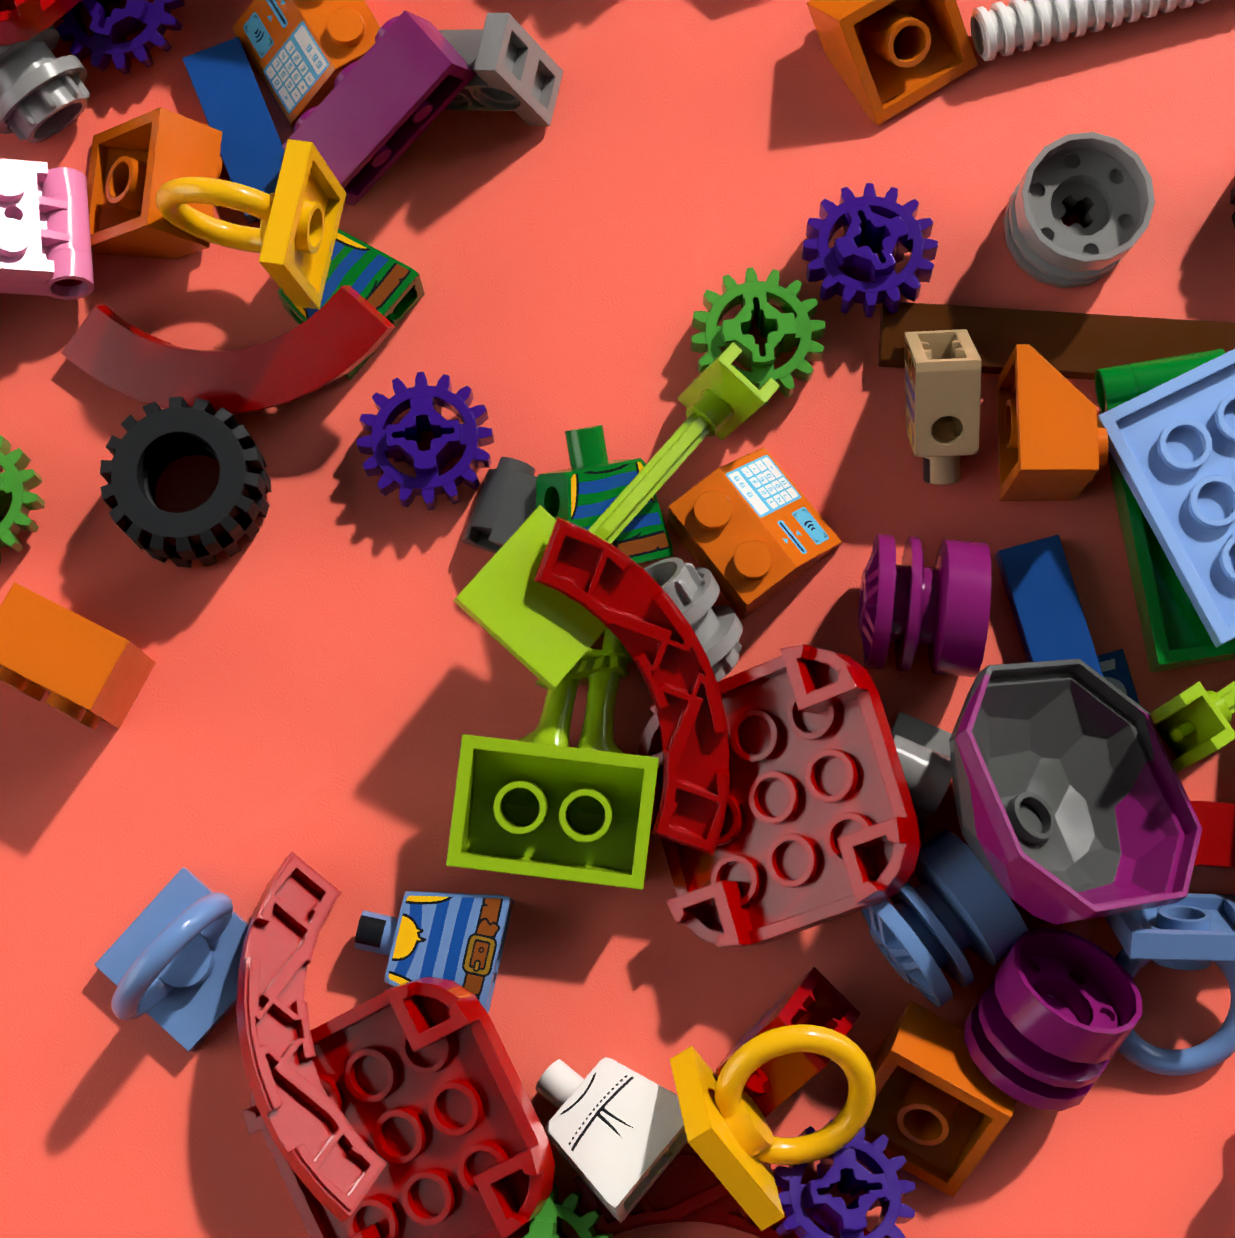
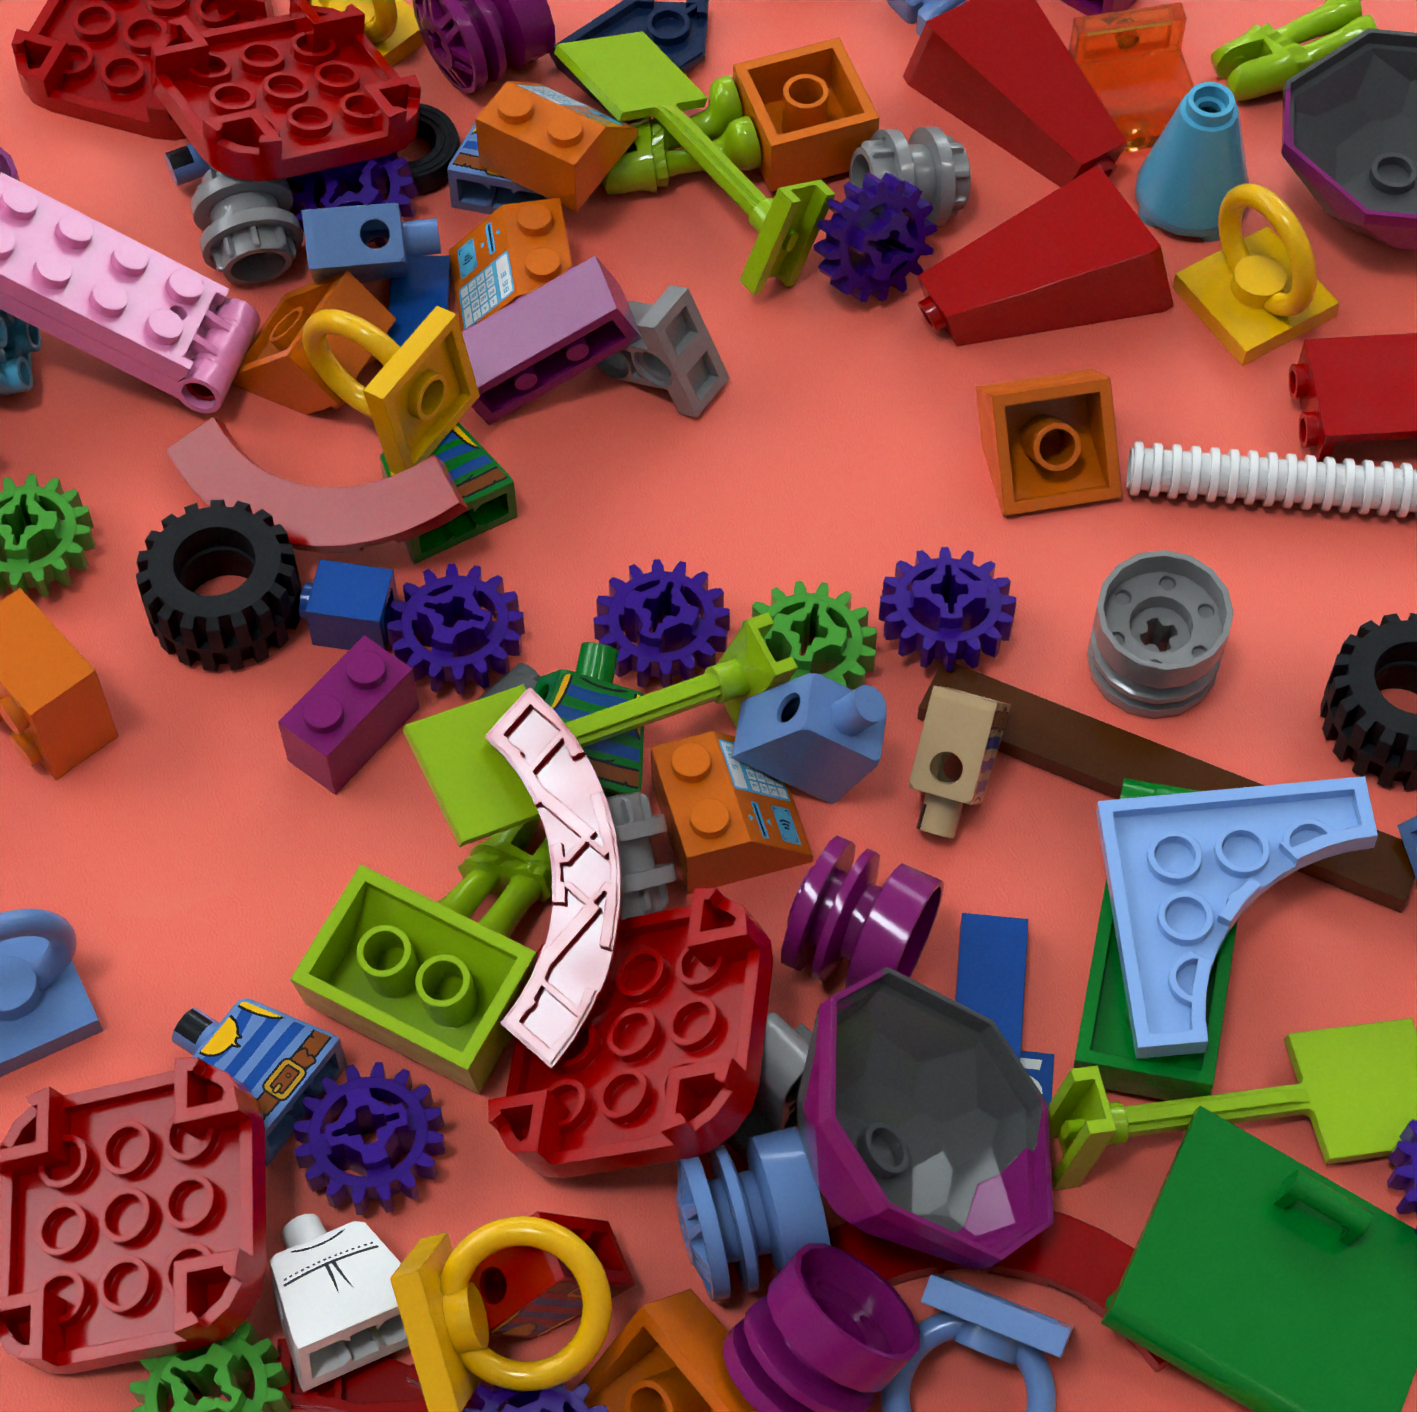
camera: 20 degrees right, 20 degrees down
(135, 75) = (340, 235): none -> medium blue torso
(280, 1046) = (51, 1088): tile -> none
(316, 455) = (348, 604): none -> blue brick
(368, 568) = (349, 714): none -> magenta brick
(553, 946) = (338, 1146): none -> dark purple gear
(637, 362) = (660, 605): none -> dark purple gear
(834, 434) = (813, 734): none -> medium blue torso
(1044, 432) = (1046, 816): orange slope -> none

